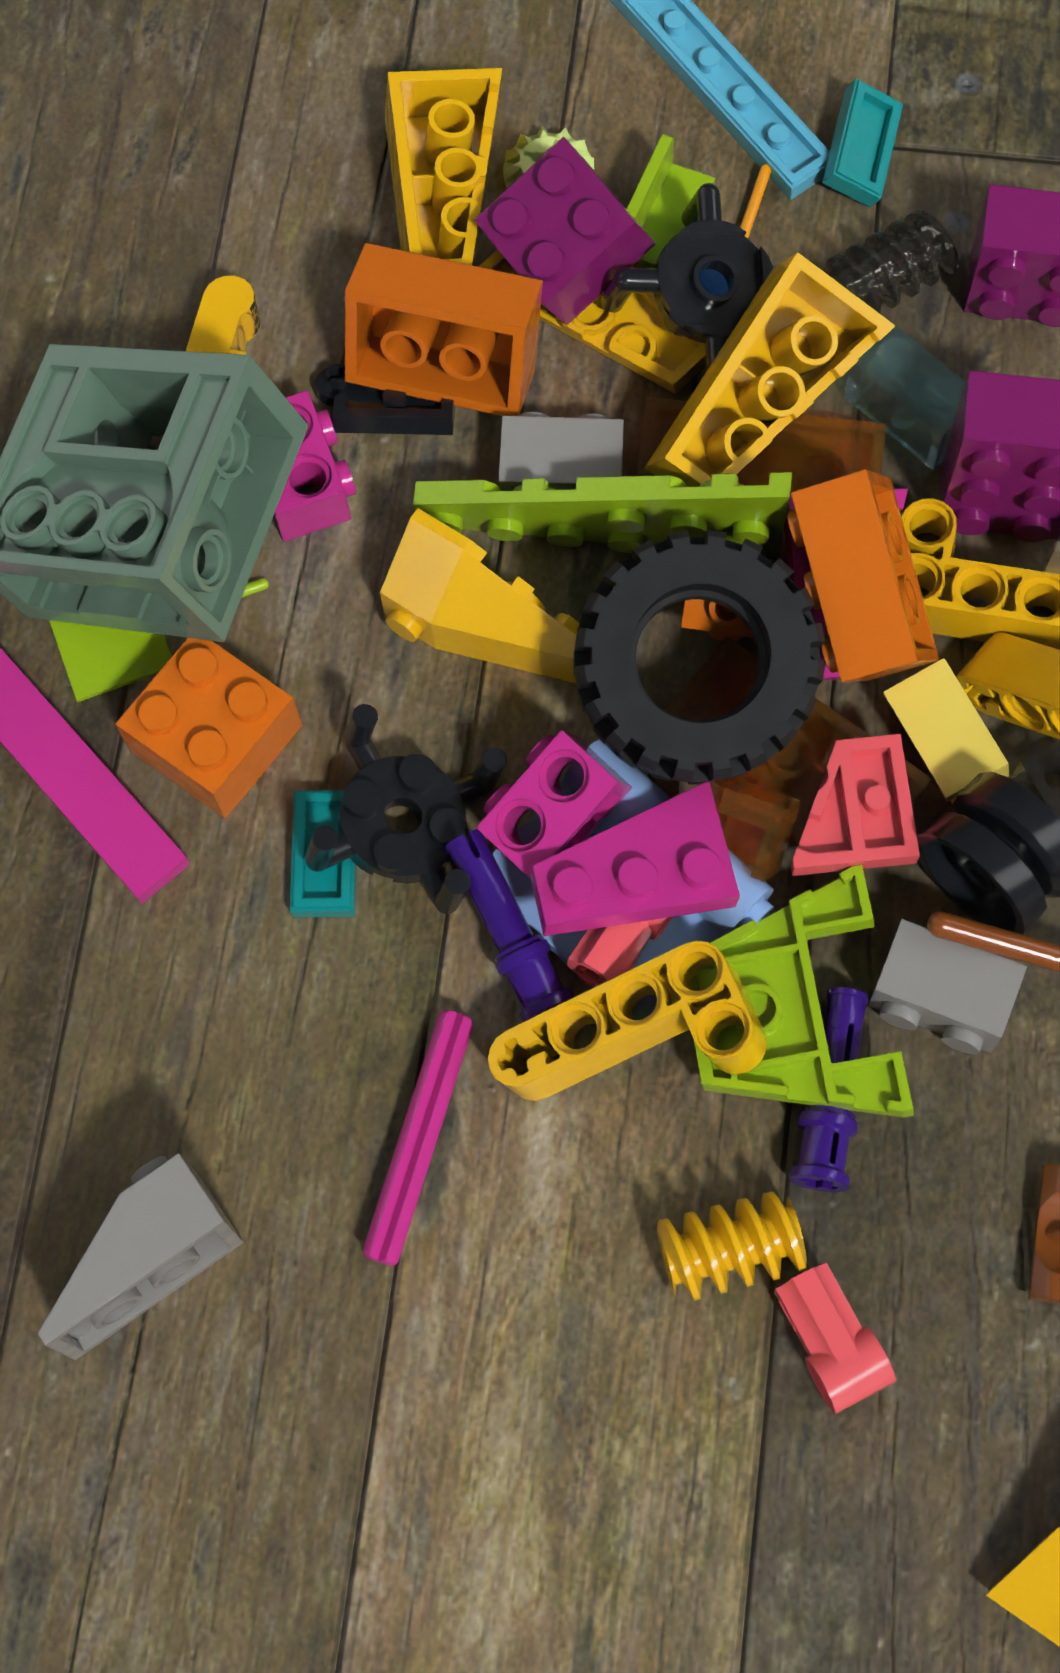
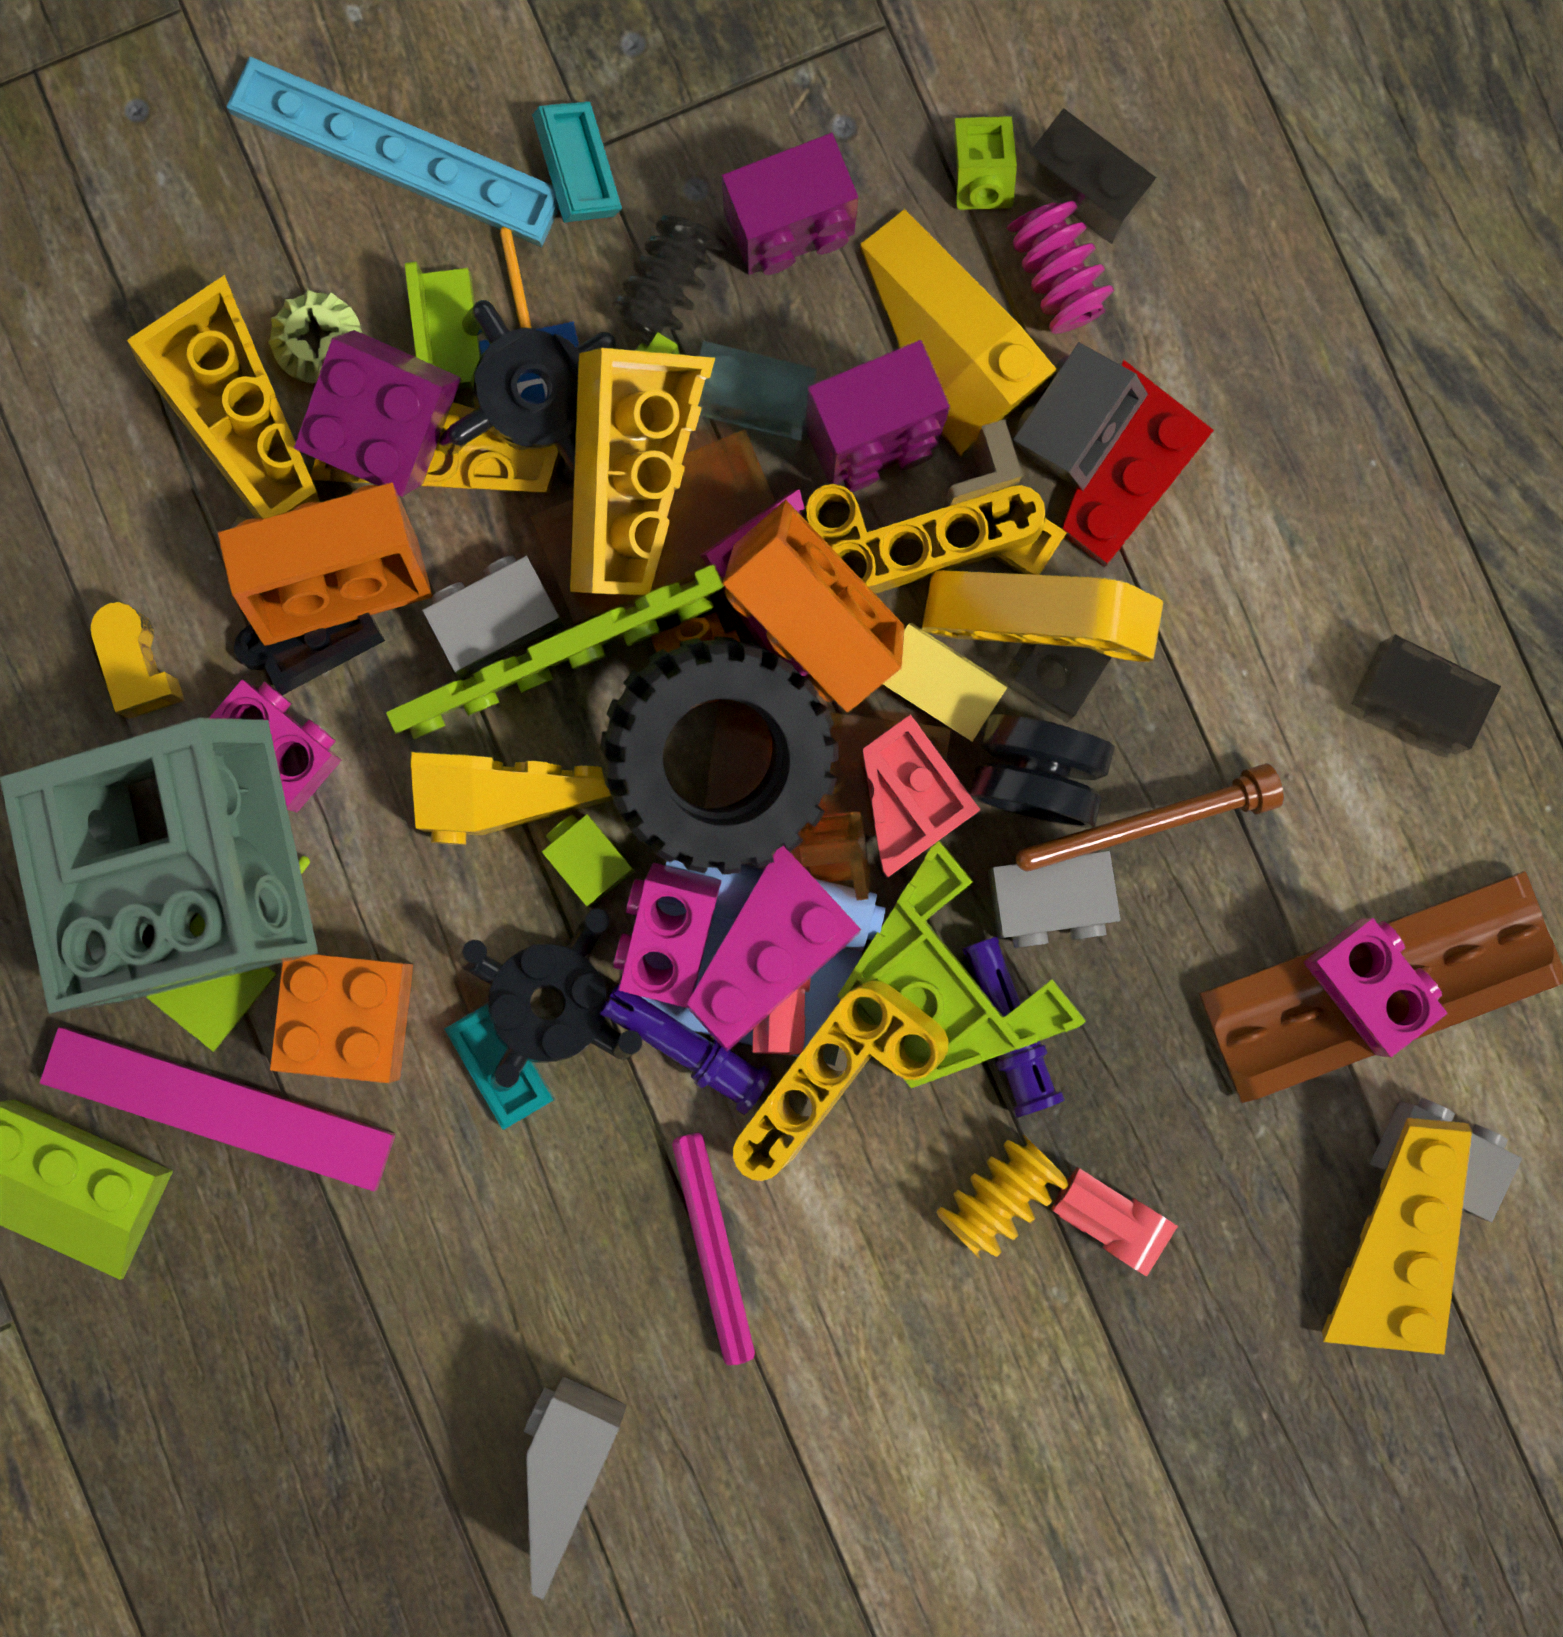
camera: 40 degrees left, 15 degrees up
(517, 708) = (586, 859): none -> lime brick

